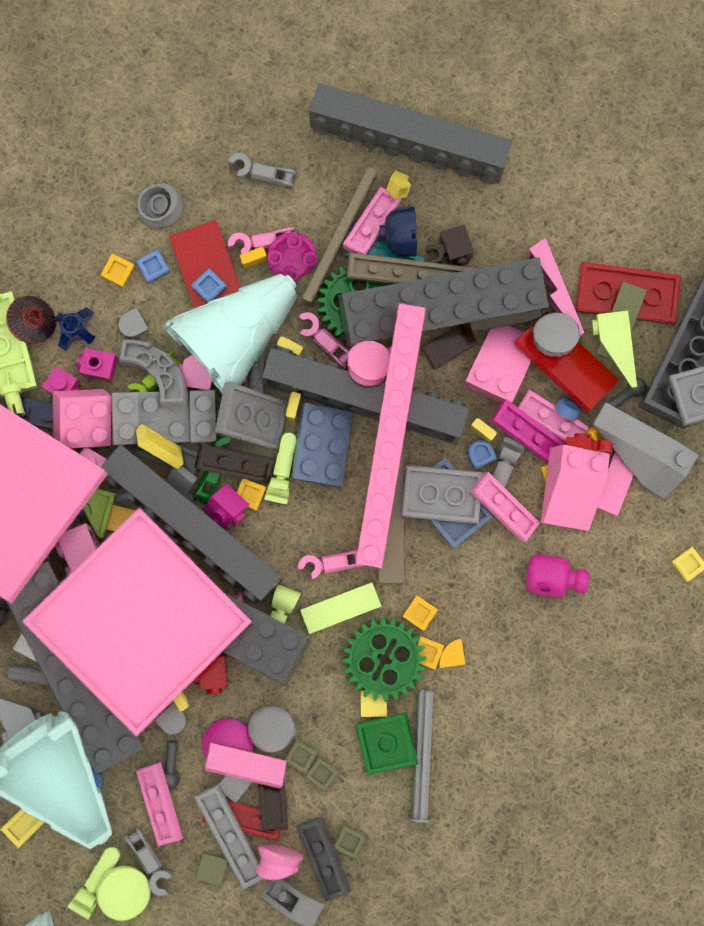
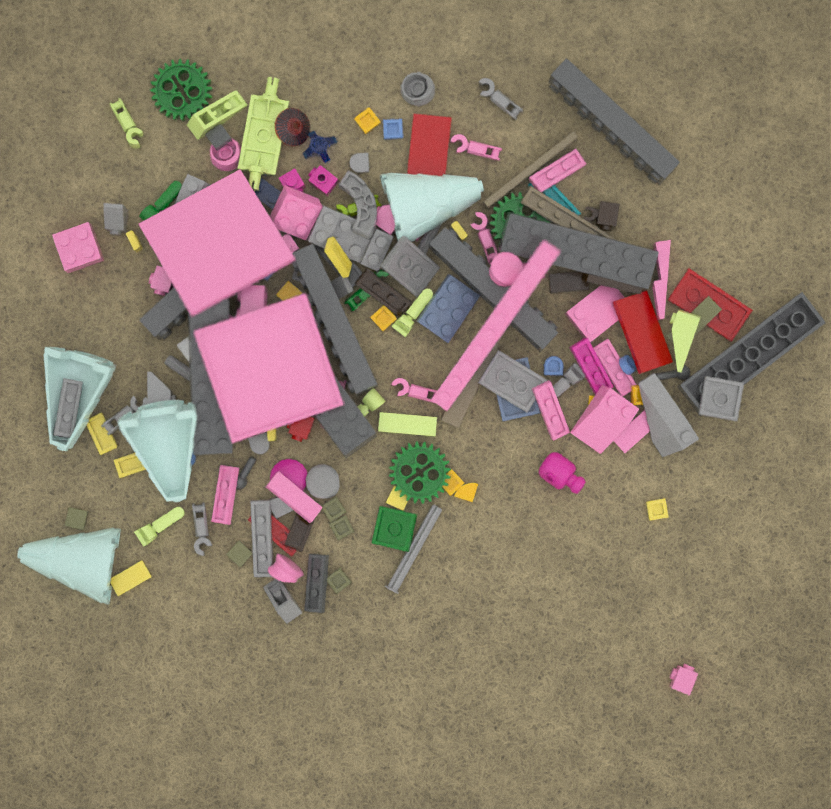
camera: 30 degrees right, 5 degrees up
(98, 510) = (277, 280): lime tile -> none
(123, 892) = (174, 540): yellowish green tile -> none
(209, 285) = (424, 162): medium blue tile -> none
(226, 507) = (363, 320): dark pink brick -> none
(253, 258) = (467, 157): yellow tile -> none
(291, 255) = (491, 168): dark pink dish -> none
(293, 406) = (441, 272): light yellow tile -> none
(398, 185) = (588, 154): light yellow piece -> none
(400, 231) = (573, 187): dark blue cylinder -> none
(420, 613) = (459, 453): yellow tile -> none
(483, 430) = (562, 351): light yellow tile -> none
(556, 334) = (644, 310): light grey piece -> none
(583, 441) = (625, 392): red plate -> none

